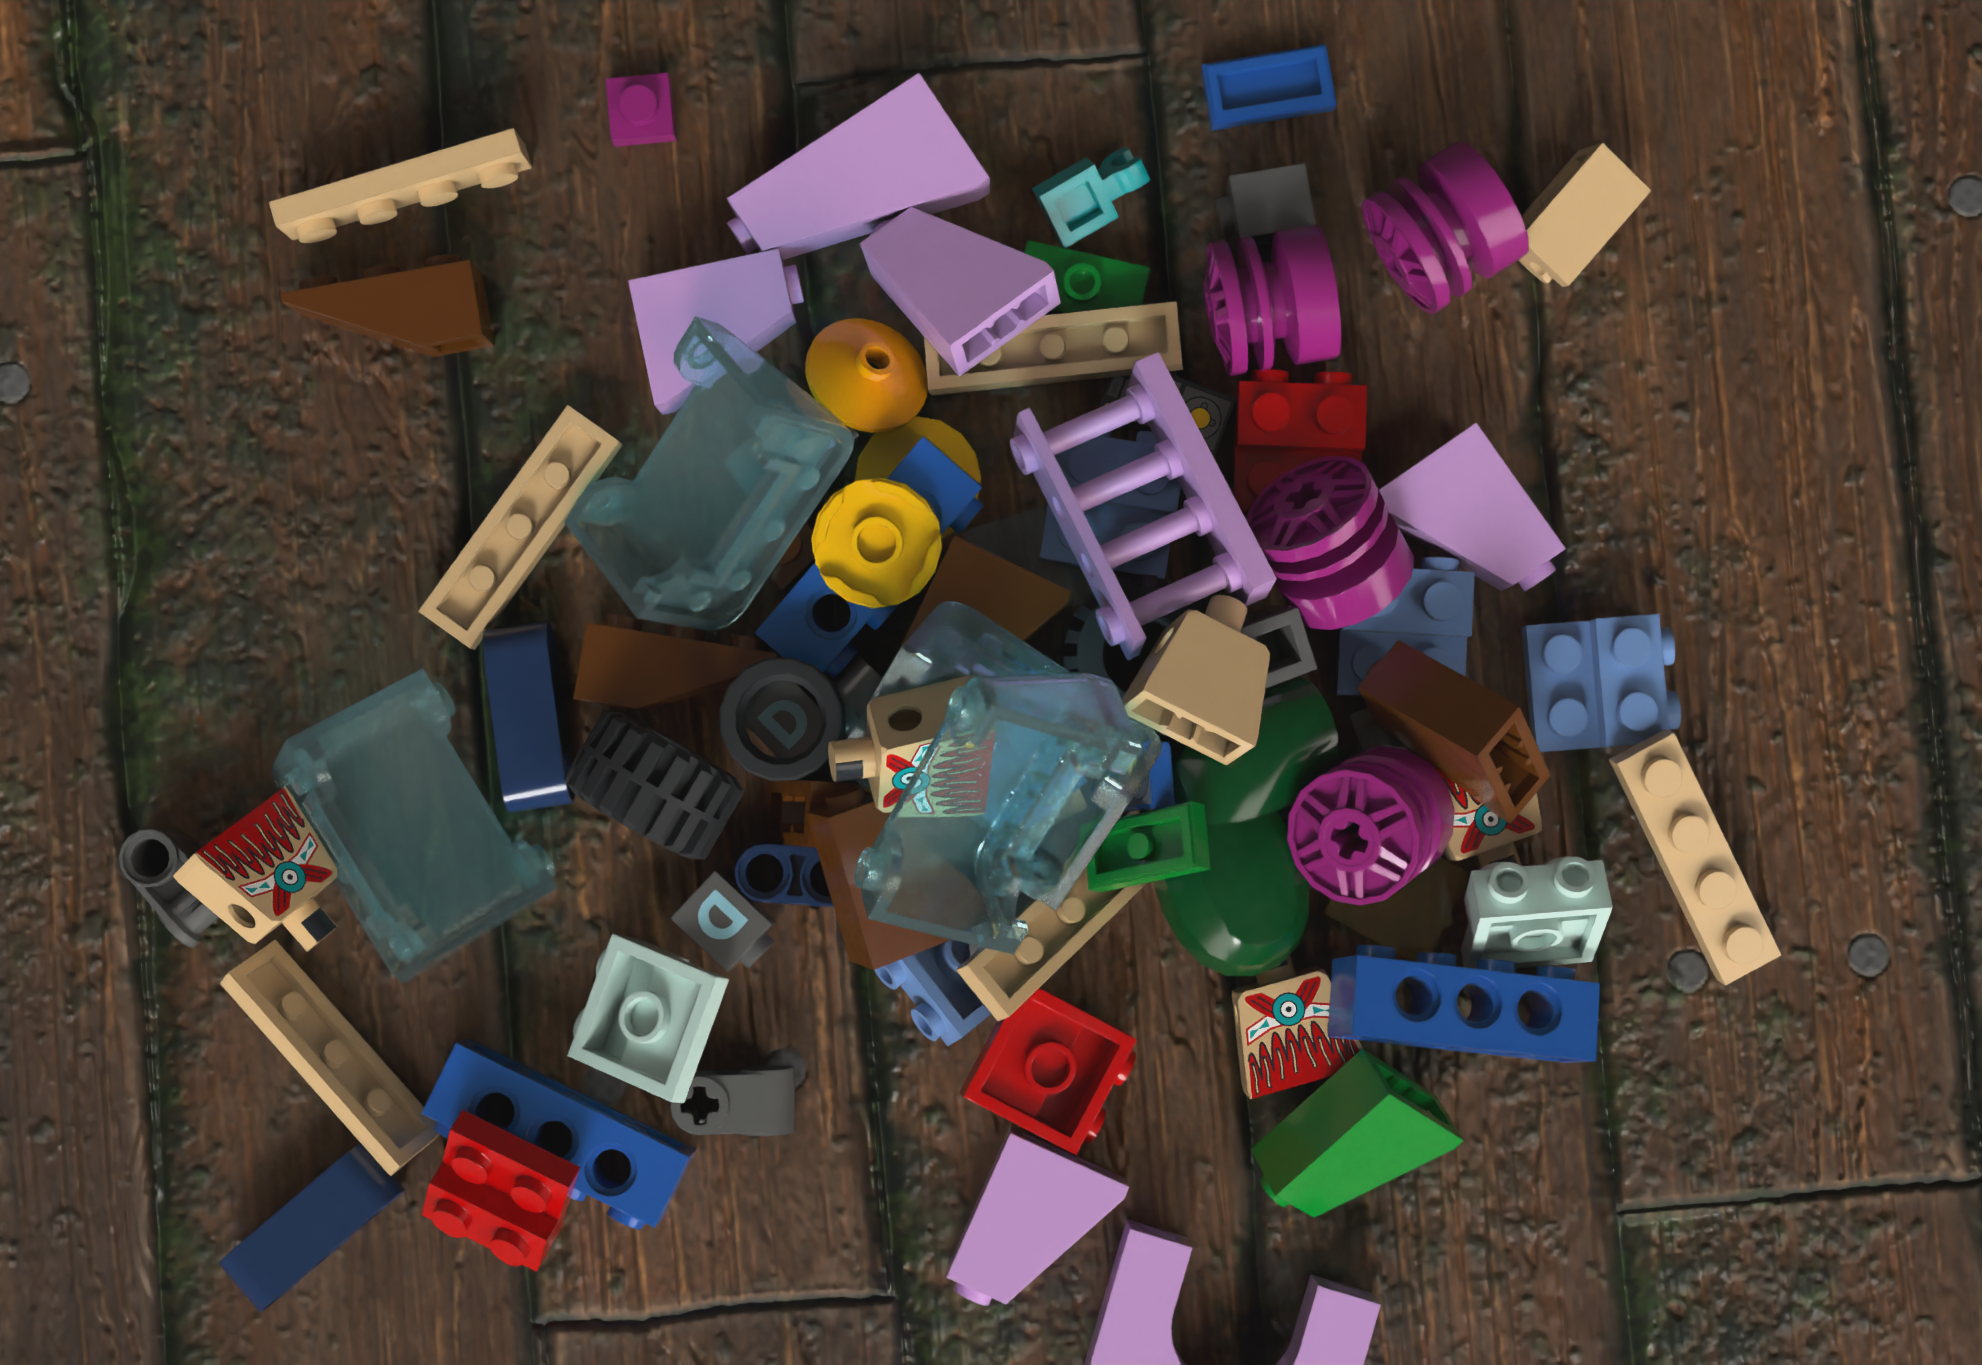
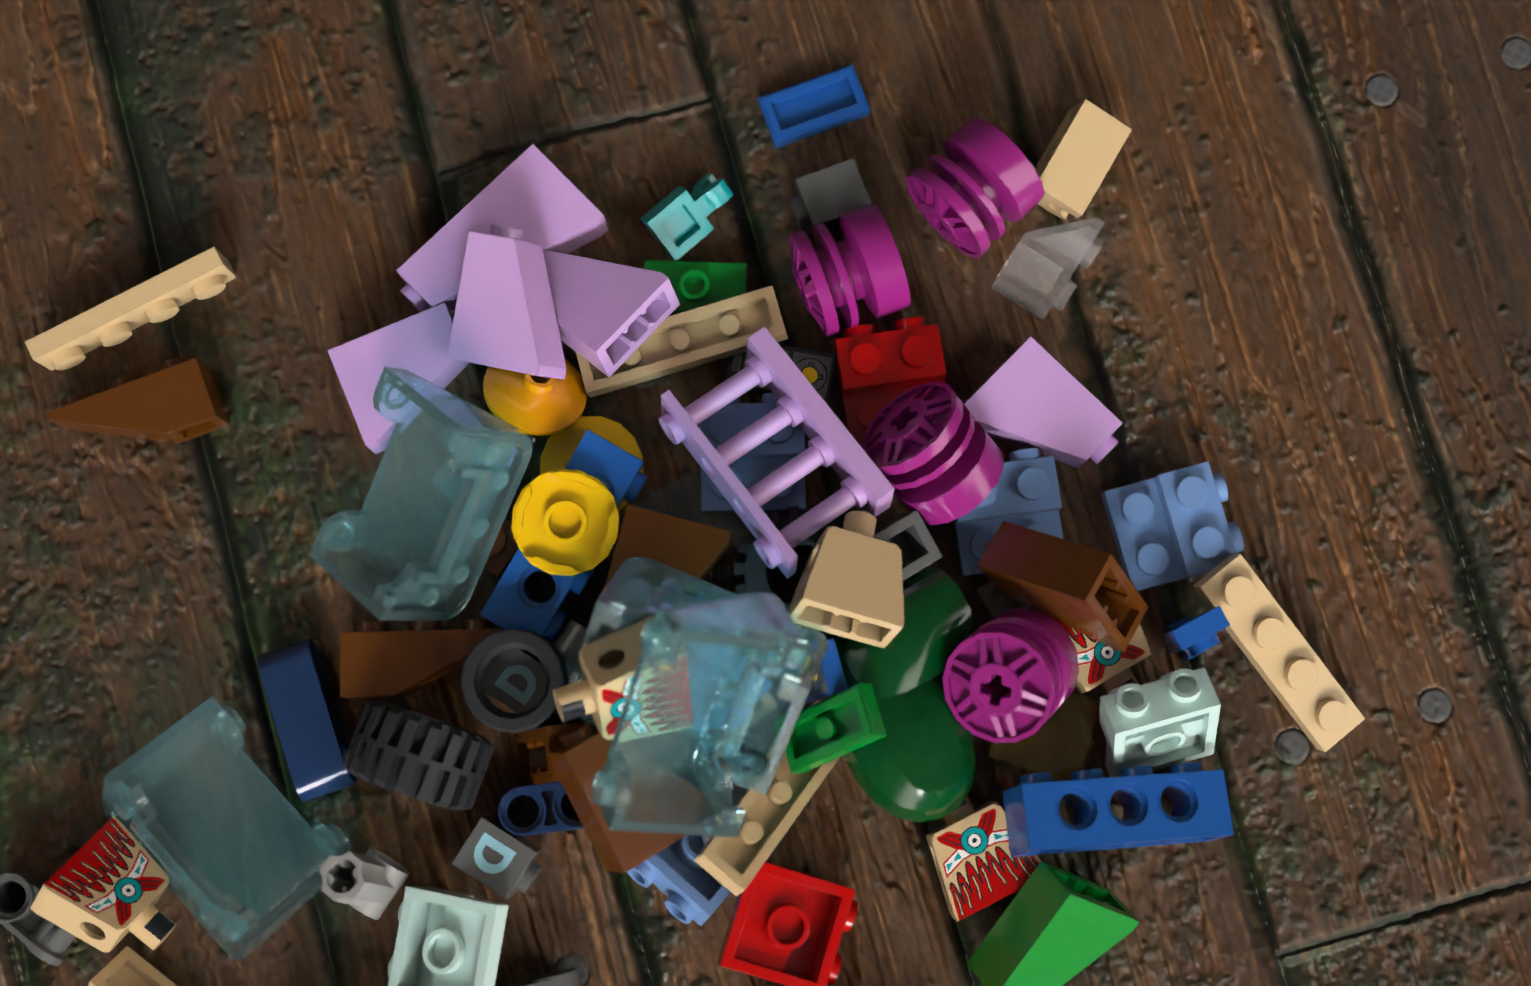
camera: 15 degrees left, 5 degrees down
(520, 528) = (273, 567): tan plate -> none
(564, 918) = (363, 880): none -> light grey piece
(641, 109) = (316, 215): magenta plate -> none
(852, 270) = (506, 307): none -> lavender slope
(1510, 336) = (1044, 262): none -> clear slope
(1600, 818) = (1195, 634): none -> blue plate

